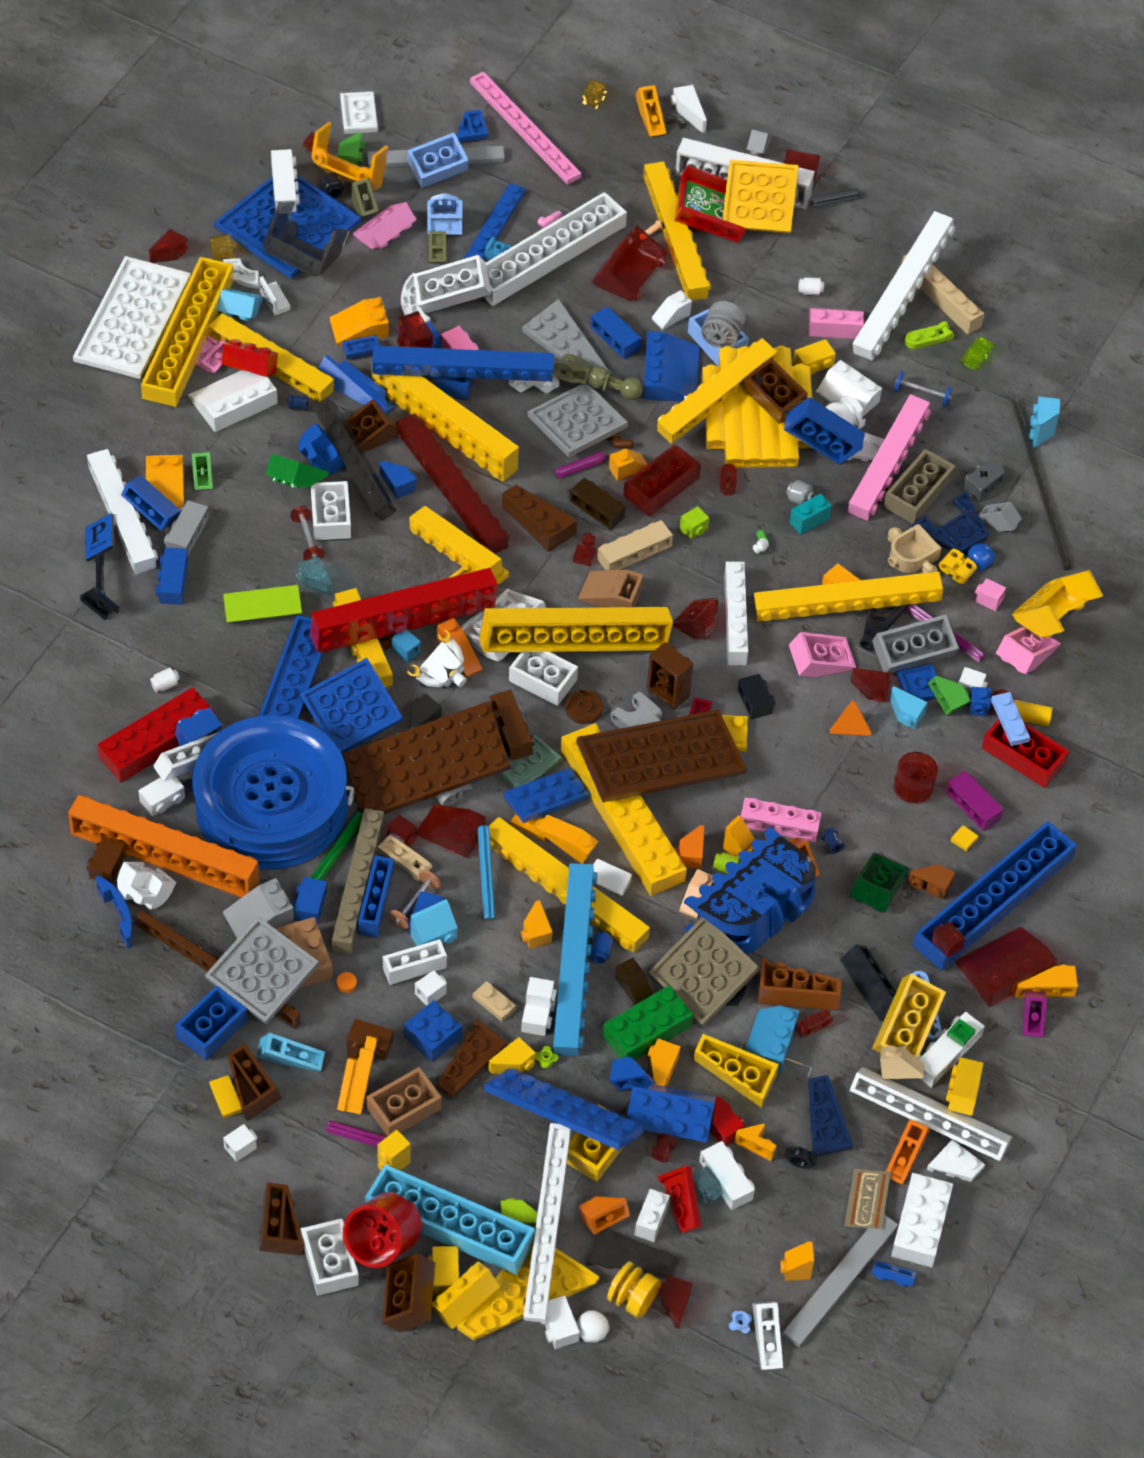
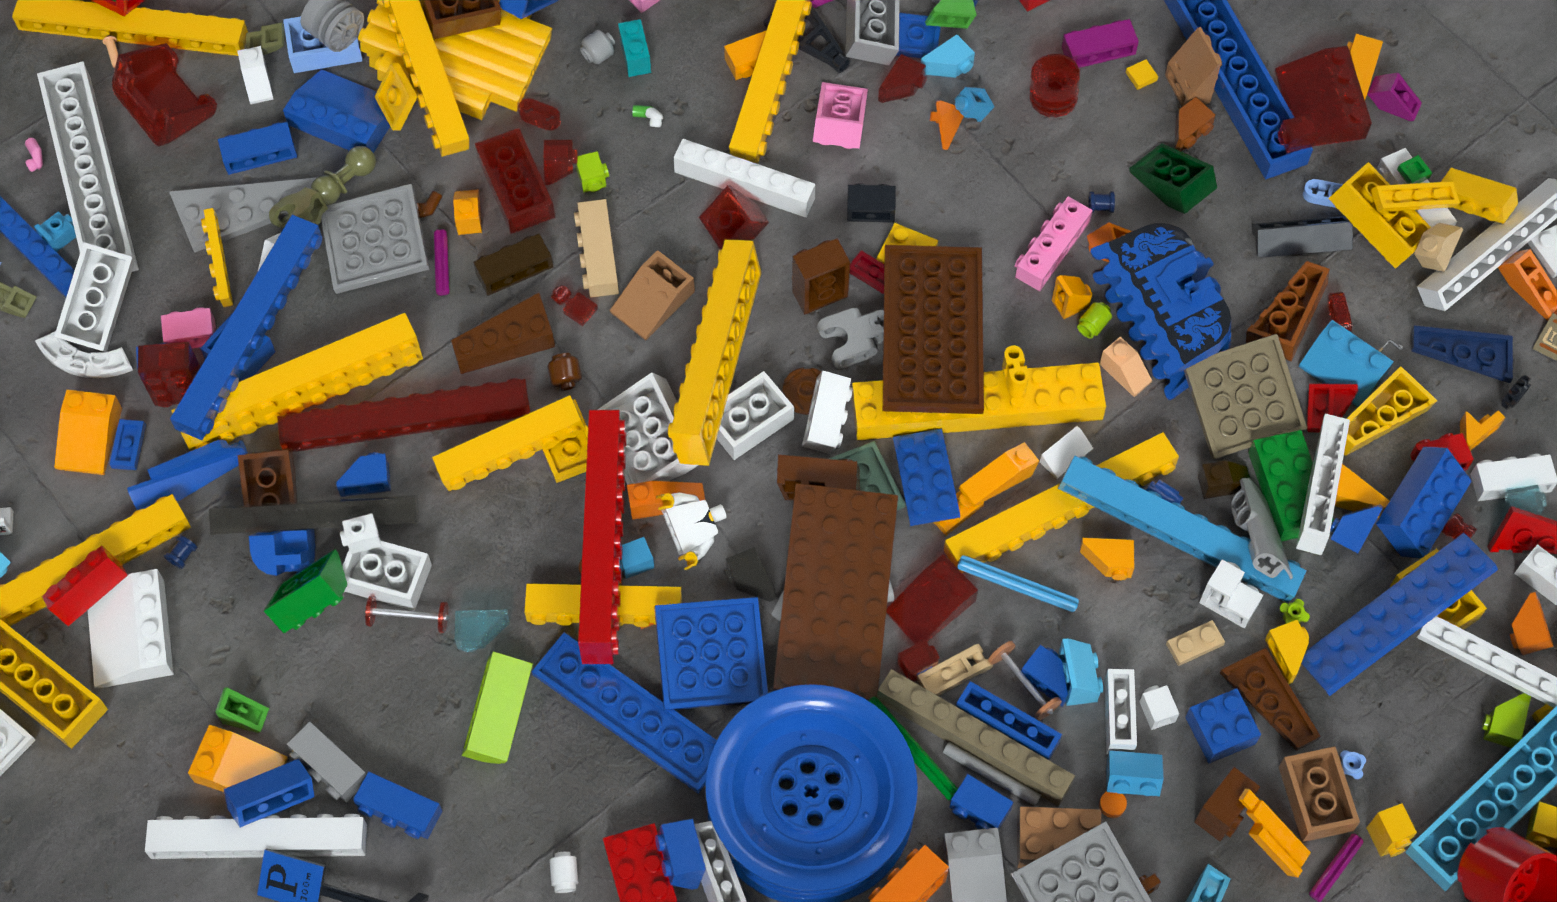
camera: 65 degrees left, 10 degrees up
(211, 355) = (44, 631): bright pink slope -> none
(336, 903) = (992, 773): none -> light grey piece
(345, 480) = (360, 534): none -> white brick
(371, 984) = (1134, 773): none -> dark azure brick
(440, 1119) = (1355, 758): none -> light blue plate
(524, 335) = (215, 248): none -> yellow plate
(528, 559) = (564, 371): none -> reddish brown head
(566, 718) = (827, 412): none -> white brick
(593, 1008) = (1254, 516): none -> light grey panel
(643, 811) = (1015, 371): none -> yellow piece
(644, 1030) = (1323, 485): none -> white slope
(688, 386) = (396, 96): none -> yellow plate
(688, 494) = (558, 159): none -> clear red slope
(691, 848) = (1059, 346): orange slope -> none
(700, 303) = (269, 38): none -> olive slope
(731, 1032) = (1328, 399): none -> red wing
(873, 731) = (969, 106): none -> dark azure brick
(931, 1032) = (1415, 196): none -> yellow plate
(975, 864) = (1194, 69): none -> medium nougat slope

